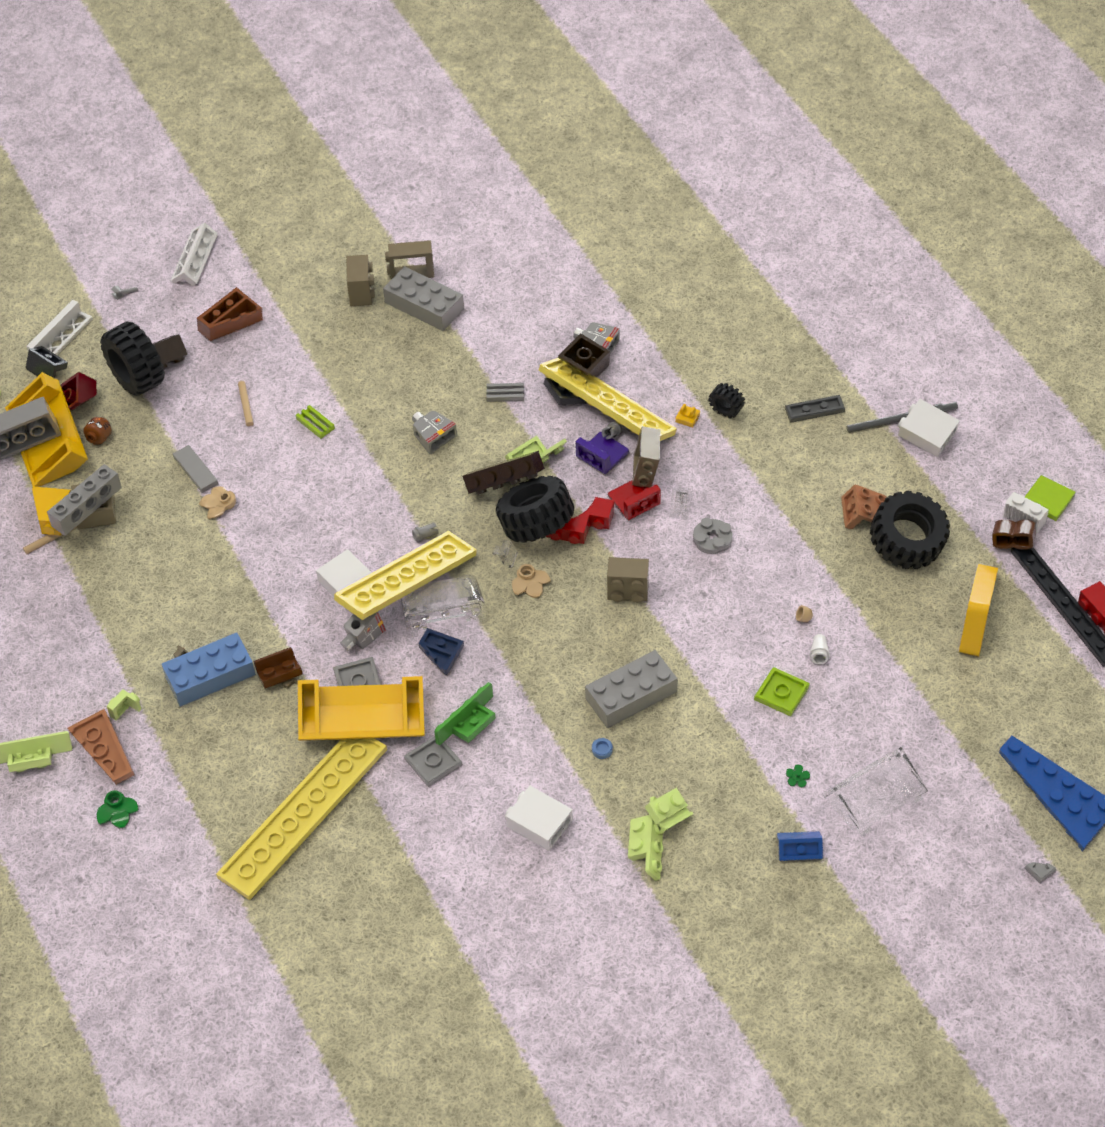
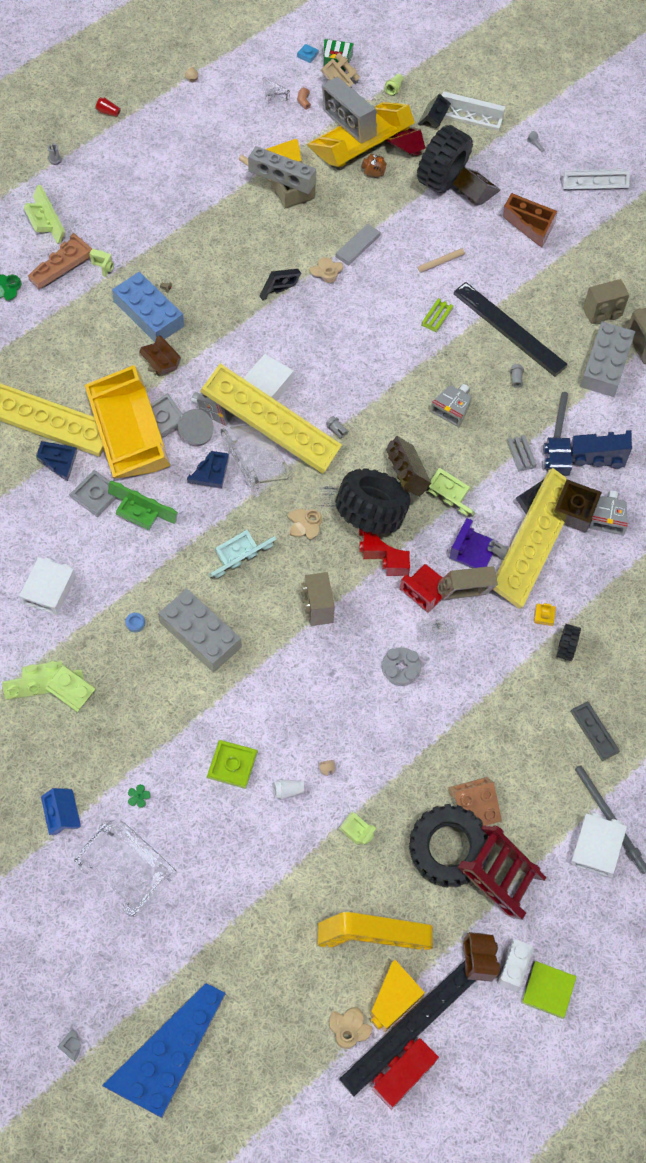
camera: 70 degrees right, 10 degrees up
(221, 542) = (280, 281): none -> black wing
(353, 368) = (510, 329): none -> black tile
(377, 788) = (57, 458): none -> dark blue wing
(384, 651) = (195, 427): none -> light grey tile
(416, 374) = (516, 371): none -> light grey pin
(471, 352) = (561, 414): none -> dark grey bar
(520, 363) = (558, 455): none -> dark blue brick
(528, 327) = (601, 450): none -> dark blue wedge
(548, 641) = (237, 549): none -> light aqua bracket
(875, 601) = (357, 829): none -> yellowish green bracket
(949, 497) = (486, 881): none -> dark red fence
(1038, 606) = (395, 997): none -> yellow slope
(1059, 647) = (349, 1024): none -> tan plate

